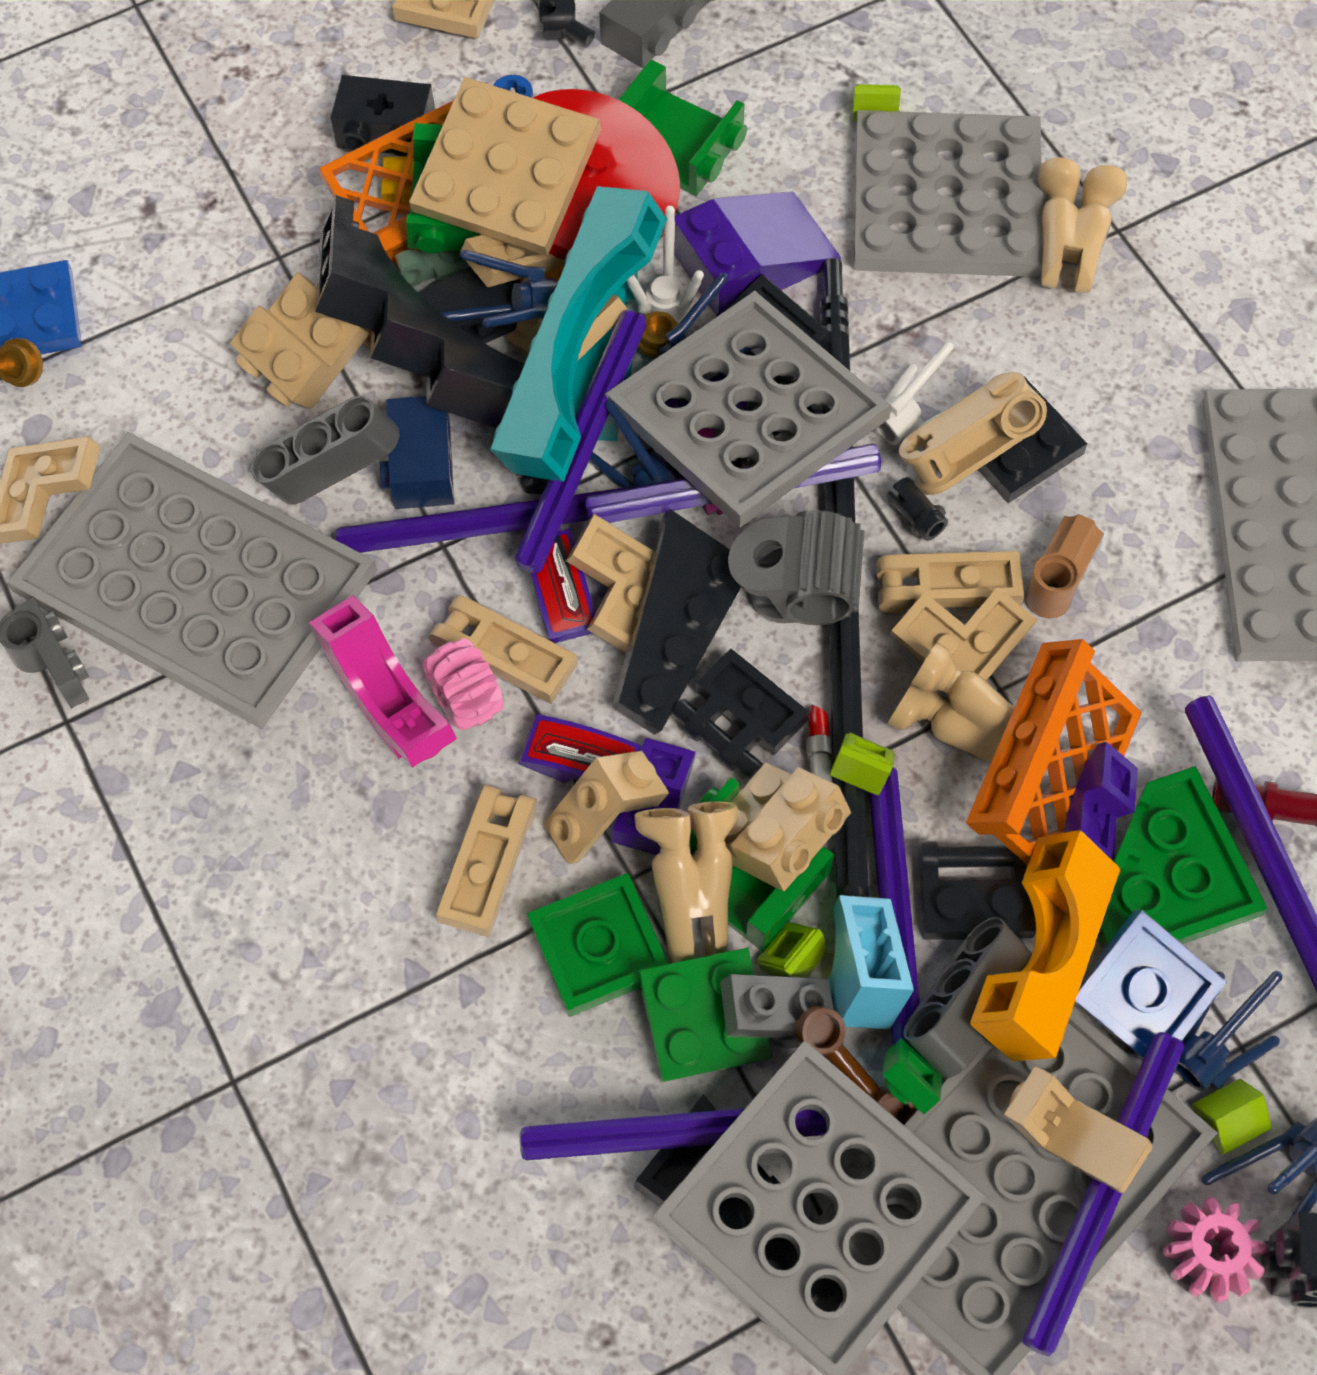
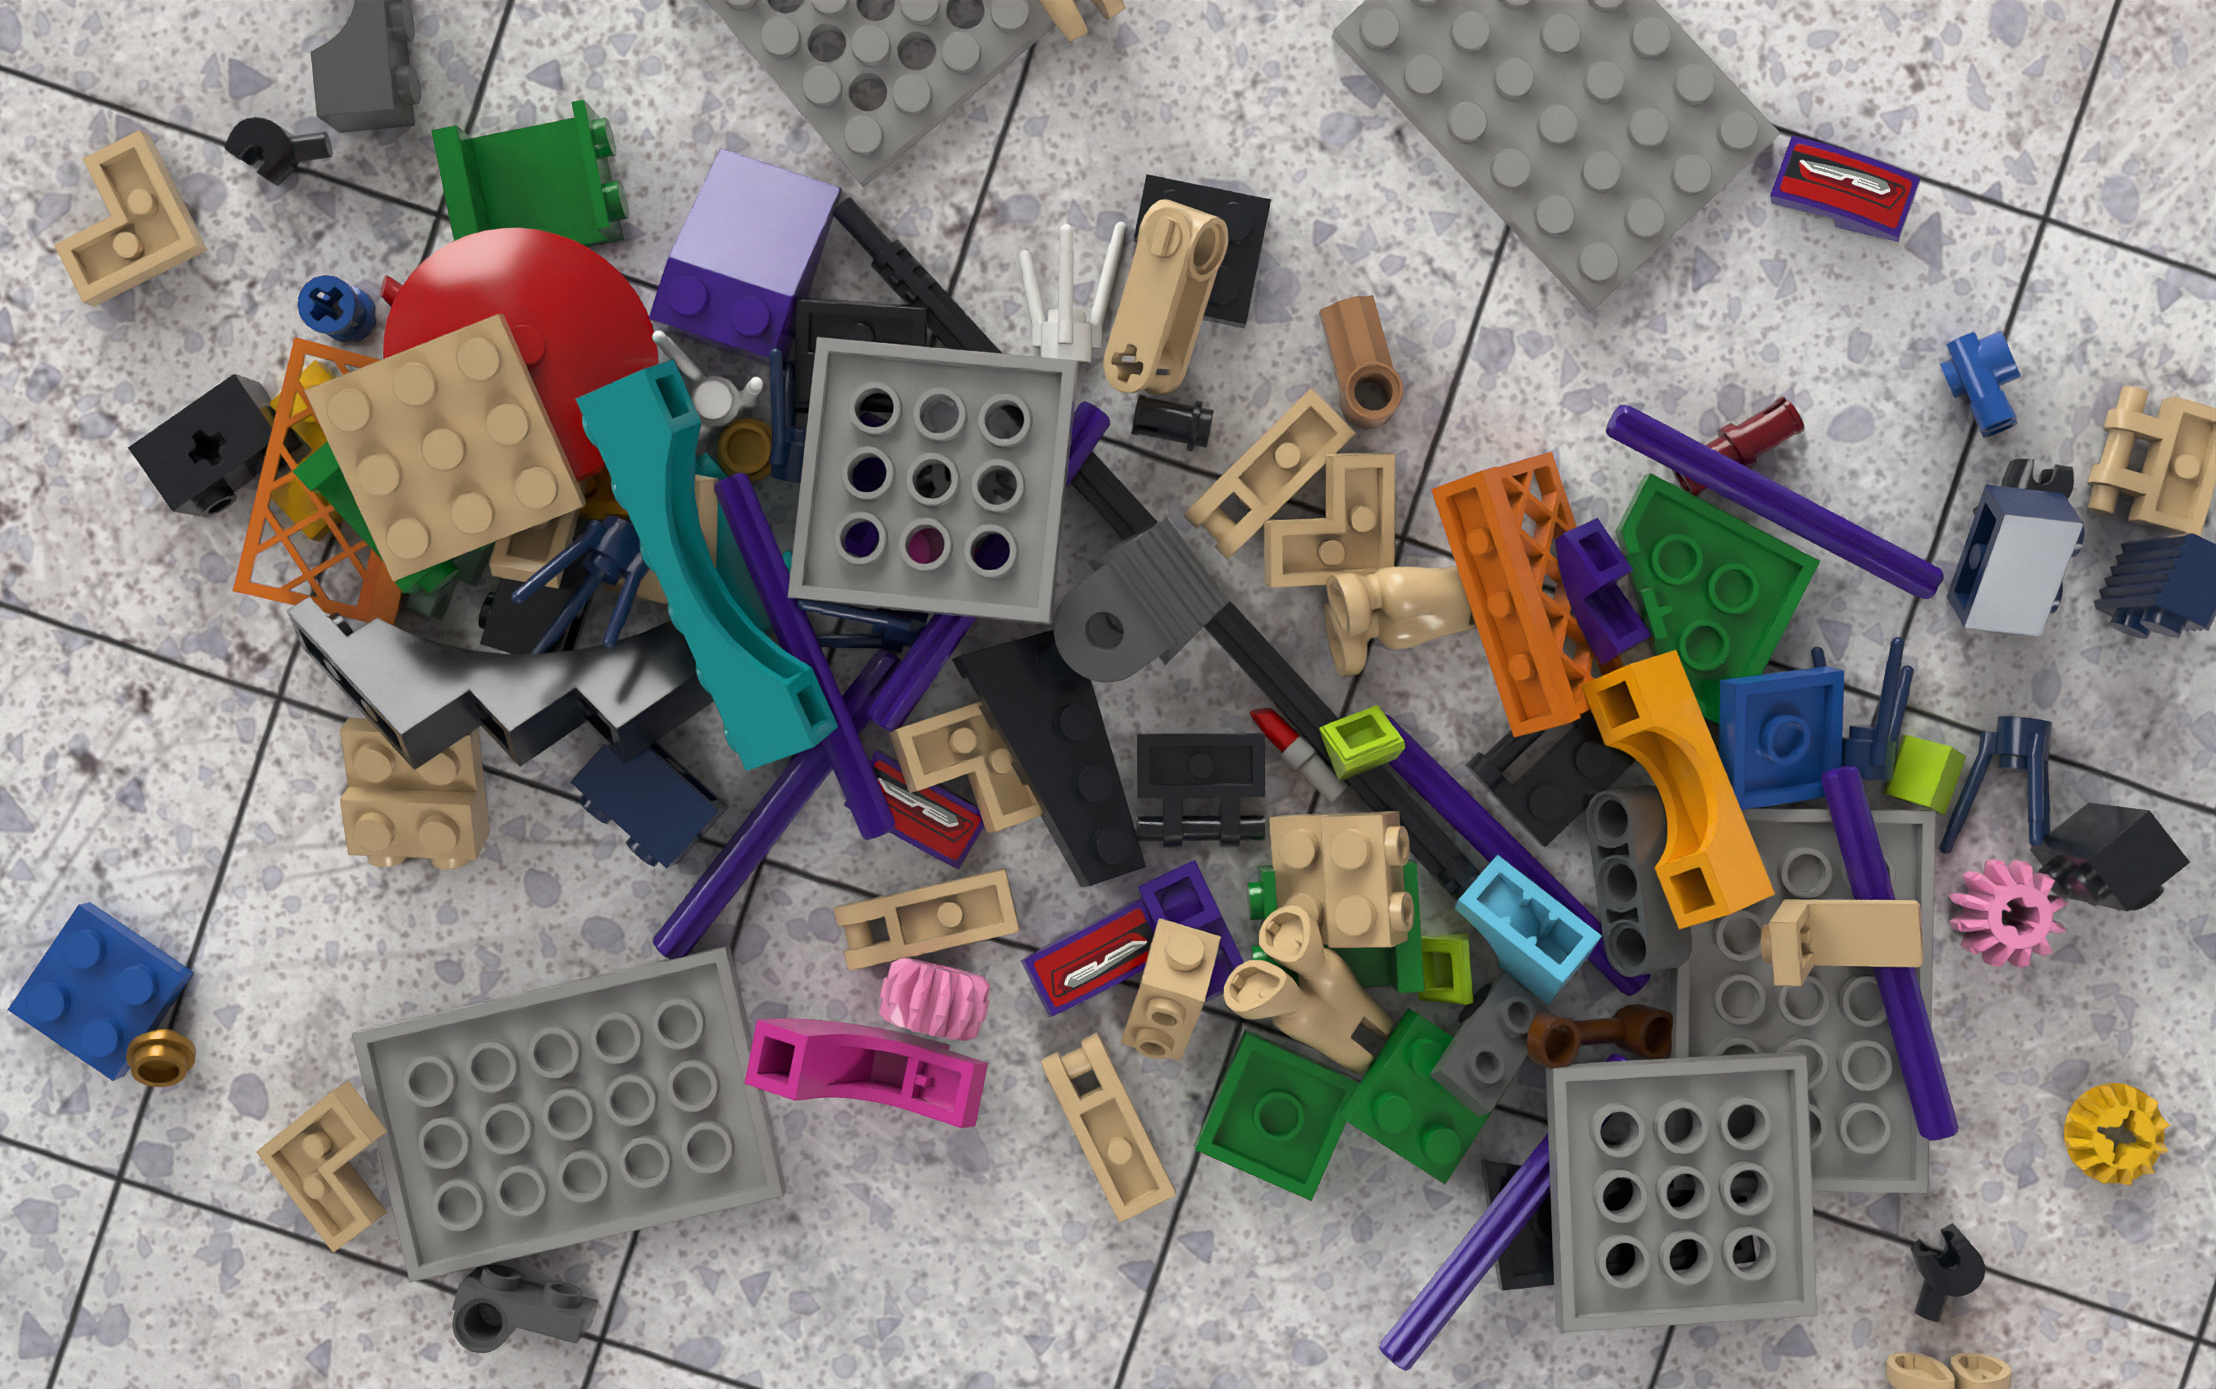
camera: 45 degrees left, 25 degrees up
(325, 450) = (569, 890): dark grey beam -> none
(911, 1077) = (1656, 1004): green plate -> none

